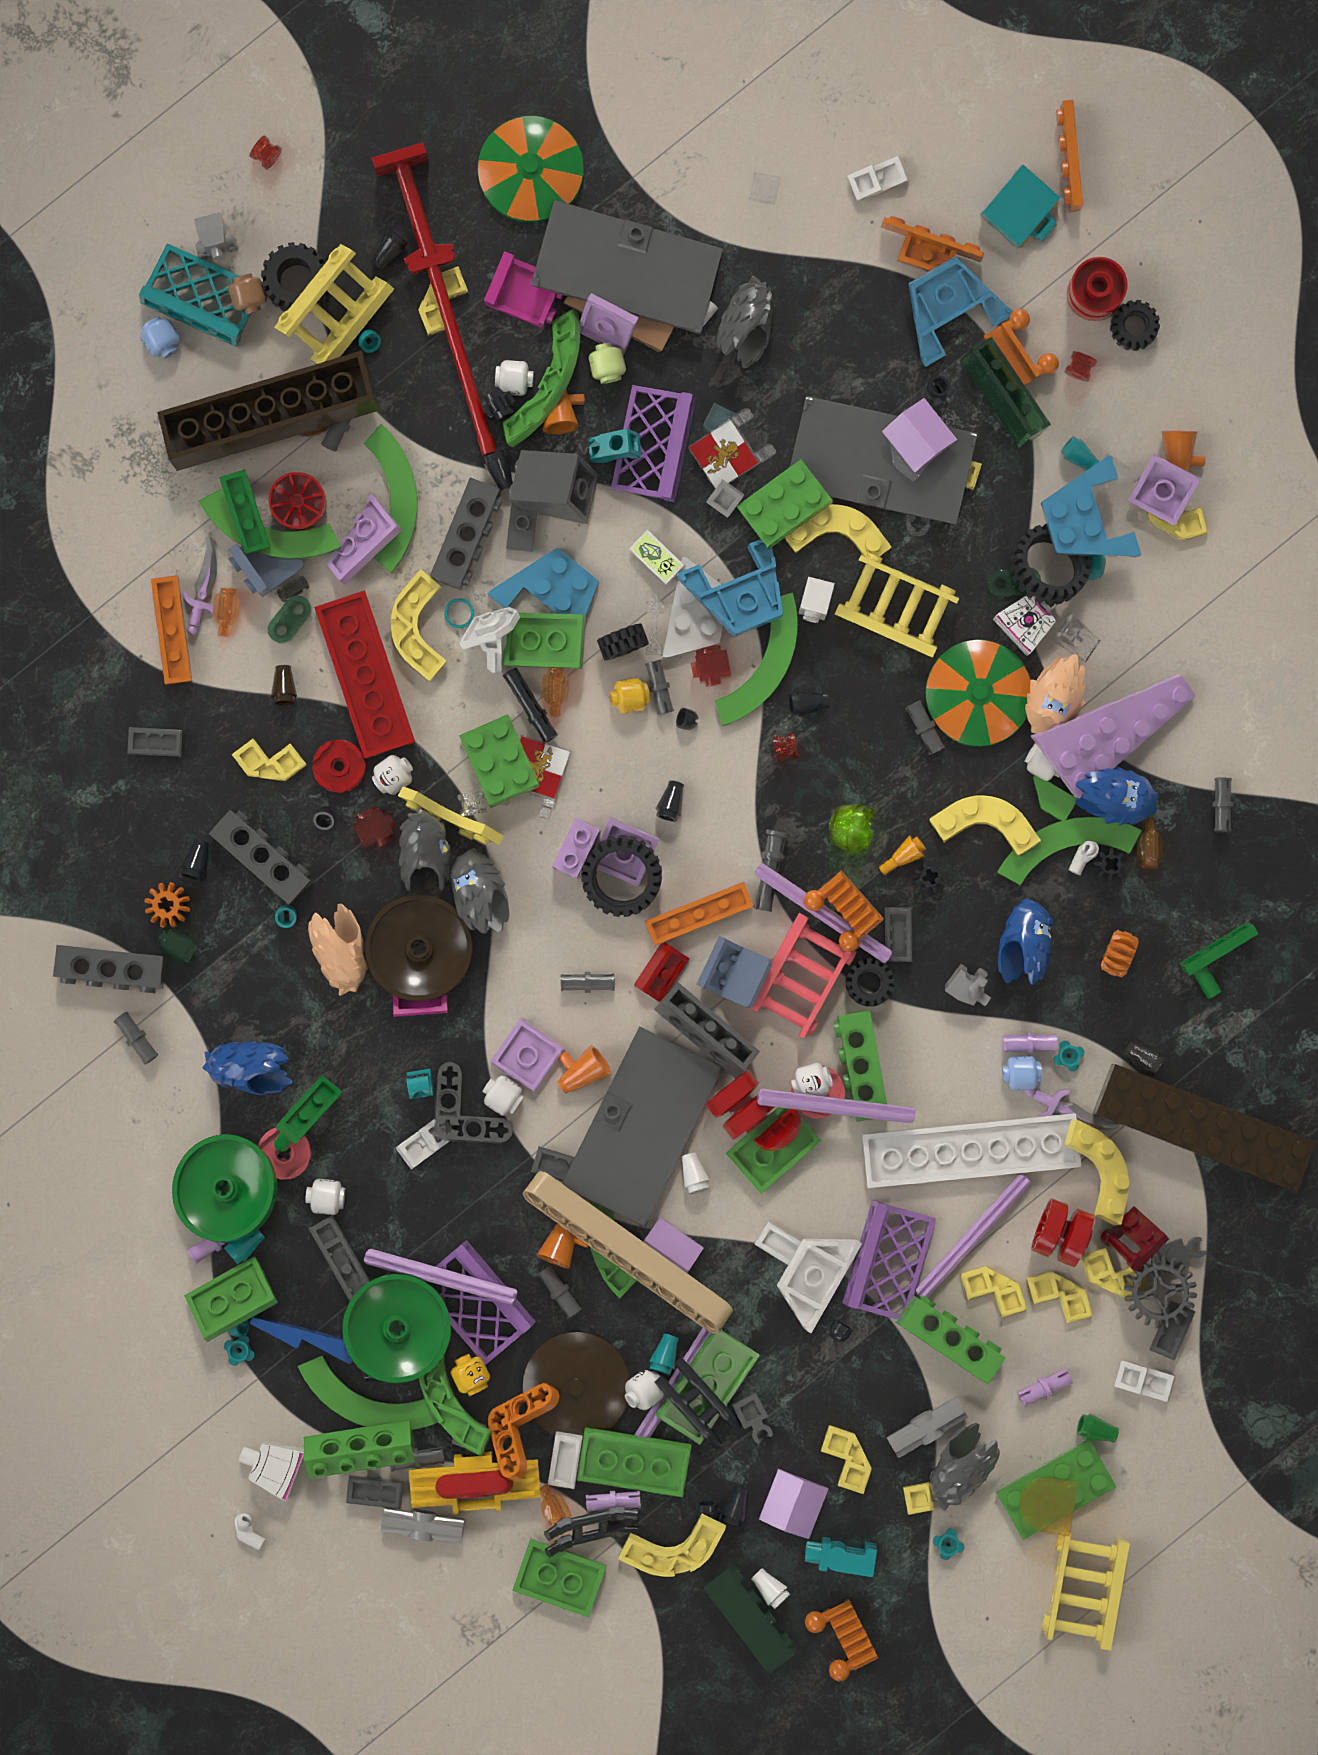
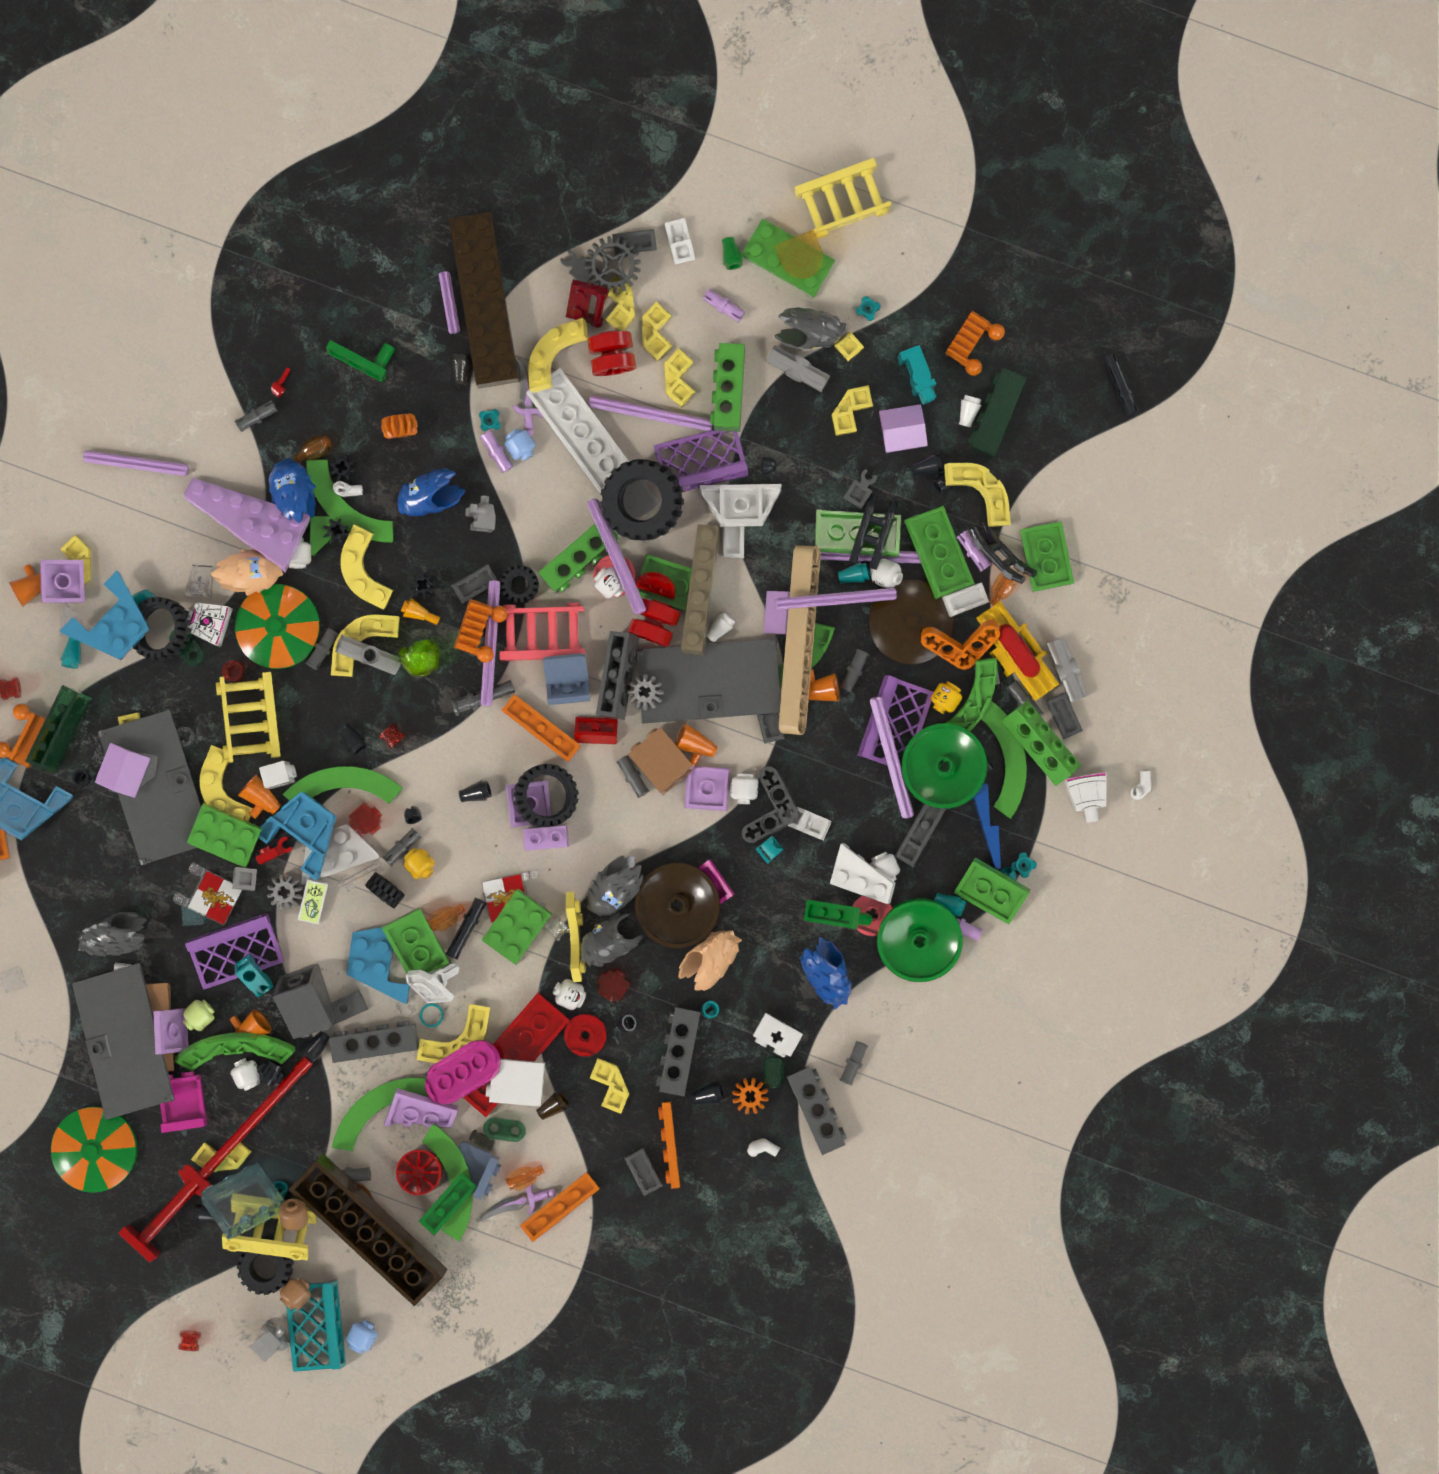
camera: 120 degrees left, 0 degrees up
(106, 886) = (761, 1146): none -> white arm
(178, 791) = (667, 1135): none -> orange plate
(206, 985) = (789, 1035): none -> white brick
(331, 340) = (293, 1214): none -> medium nougat head
(331, 661) = (517, 1083): none -> white brick
(332, 1163) = (858, 876): none -> white wing
(376, 610) = (462, 1072): none -> dark pink tile
(378, 295) = (242, 1201): none -> window
(586, 1023) = (661, 760): none -> medium nougat panel
(648, 1317) = (835, 598): none -> lavender axle
(676, 1056) = (648, 685): none -> light grey gear
(679, 526) = (281, 898): none -> light grey gear
(736, 540) = (268, 854): none -> red plate
(746, 1176) = (700, 589): none -> dark tan arch
(809, 564) = (259, 796): none -> orange piece
(901, 763) = (356, 649): none -> light grey piece
(907, 1144) = (614, 492): none -> black tyre
(920, 771) = (360, 630): none -> light yellow plate
(954, 620) = (237, 673): none -> clear red wheel
(1044, 824) = (341, 529): none -> black gear
(1224, 1088) = (449, 302): none -> lavender axle
(1240, 845) = (277, 388): none -> red hand
(1248, 643) = (135, 463): none -> lavender axle

